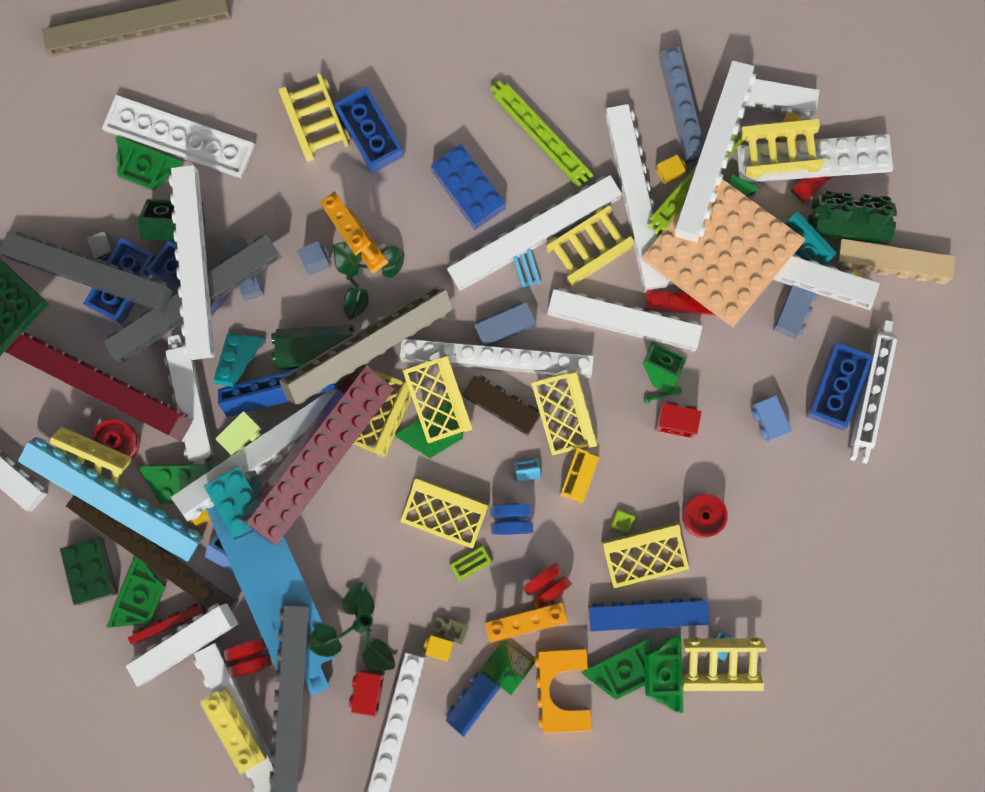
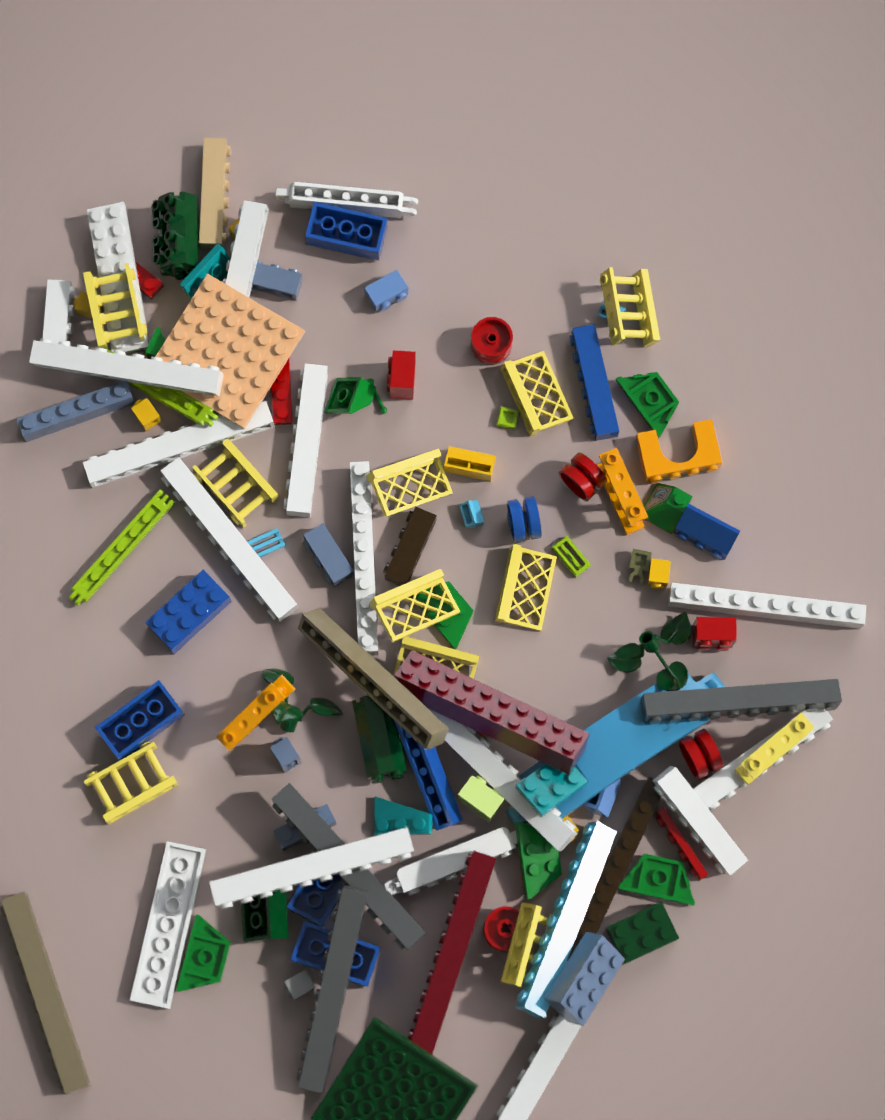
camera: 105 degrees left, 5 degrees down
(47, 505) = (584, 978): none -> sand blue brick
(664, 674) = (647, 359): green wing -> none

